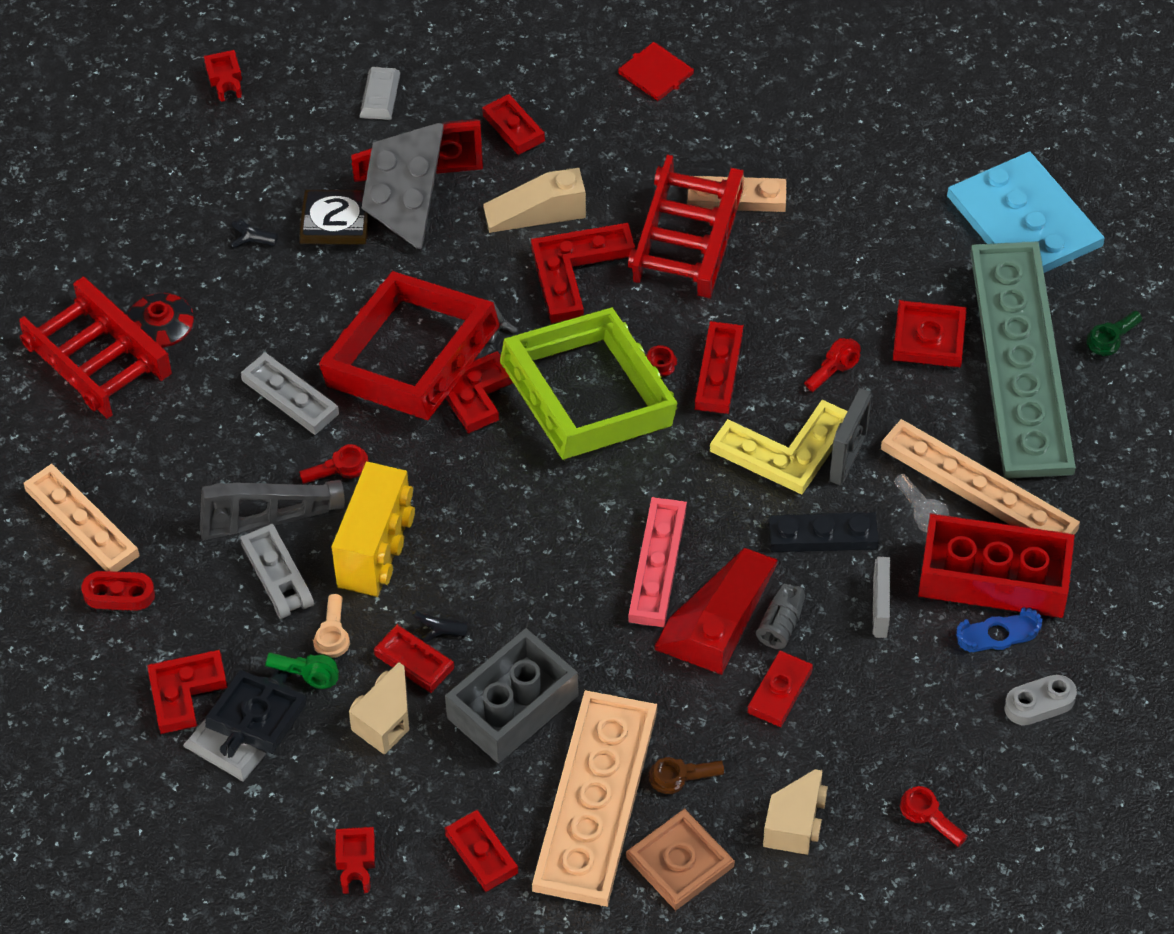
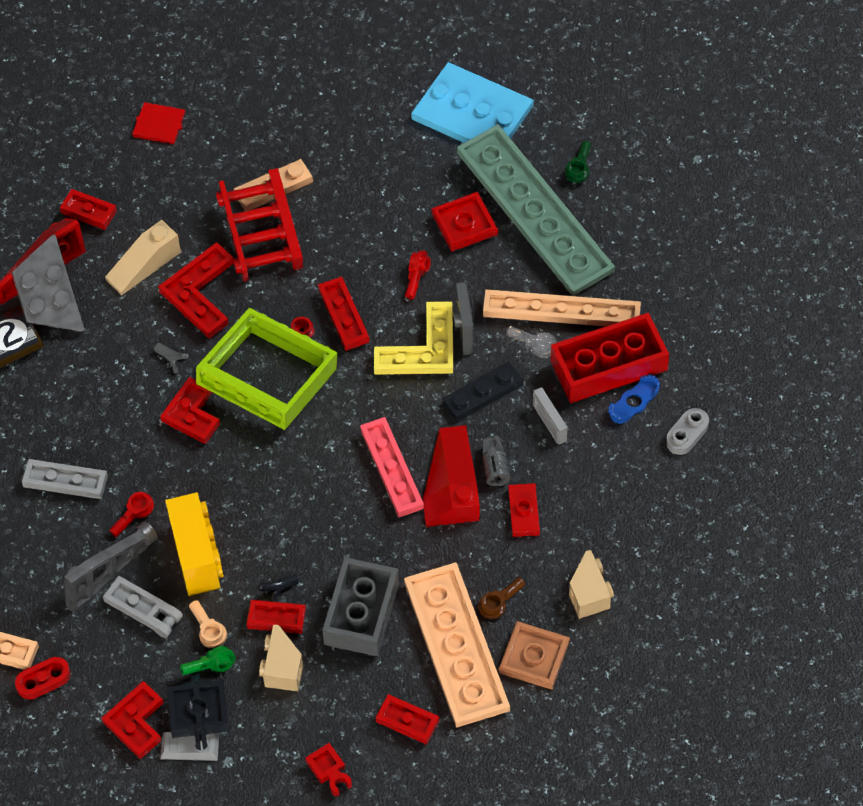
camera: 30 degrees left, 5 degrees up
(444, 372) = (130, 444): red window -> none
(921, 806) = (661, 539): red plate -> none

